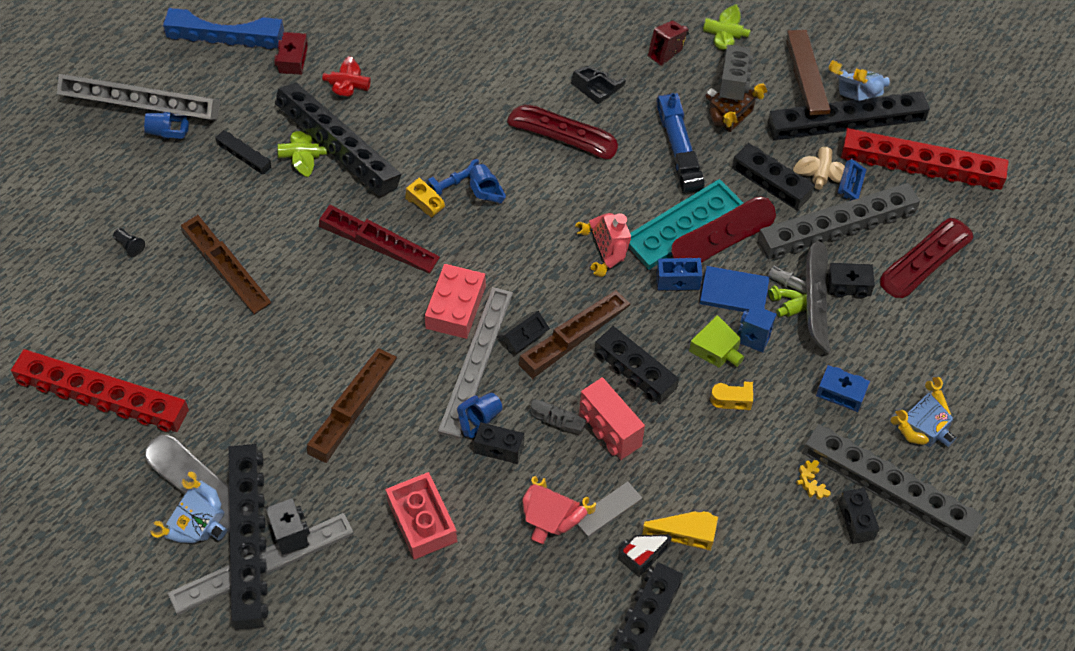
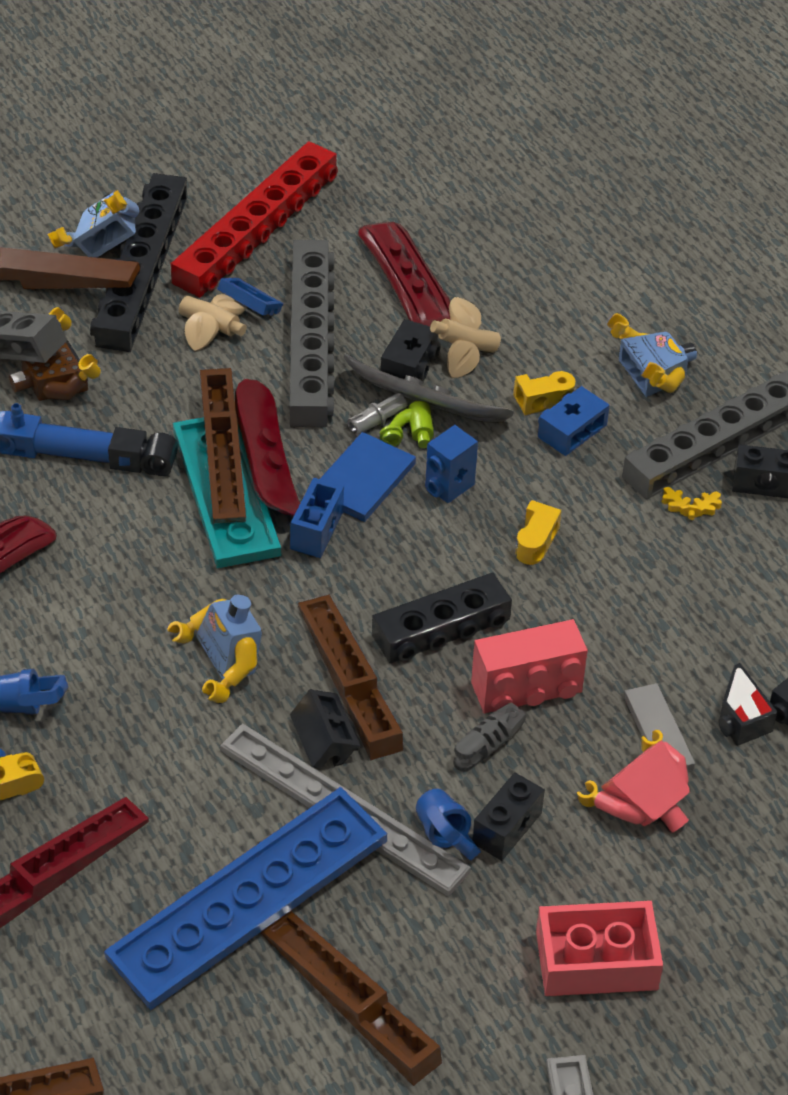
camera: 70 degrees left, 10 degrees down
(394, 333) = (245, 897): none -> blue plate
(455, 301) = (228, 794): coral brick -> none
(560, 263) = (229, 639): none -> torso
(610, 237) = (214, 570): coral torso -> none
(689, 529) = (728, 643): yellow slope -> none
(710, 207) = (222, 446): none -> reddish brown slope
(717, 344) = (446, 519): lime torso -> none
(773, 176) = (178, 374): black brick -> none
(860, 365) = (542, 392): none -> yellow leg
(880, 303) = (465, 337): none -> tan plant

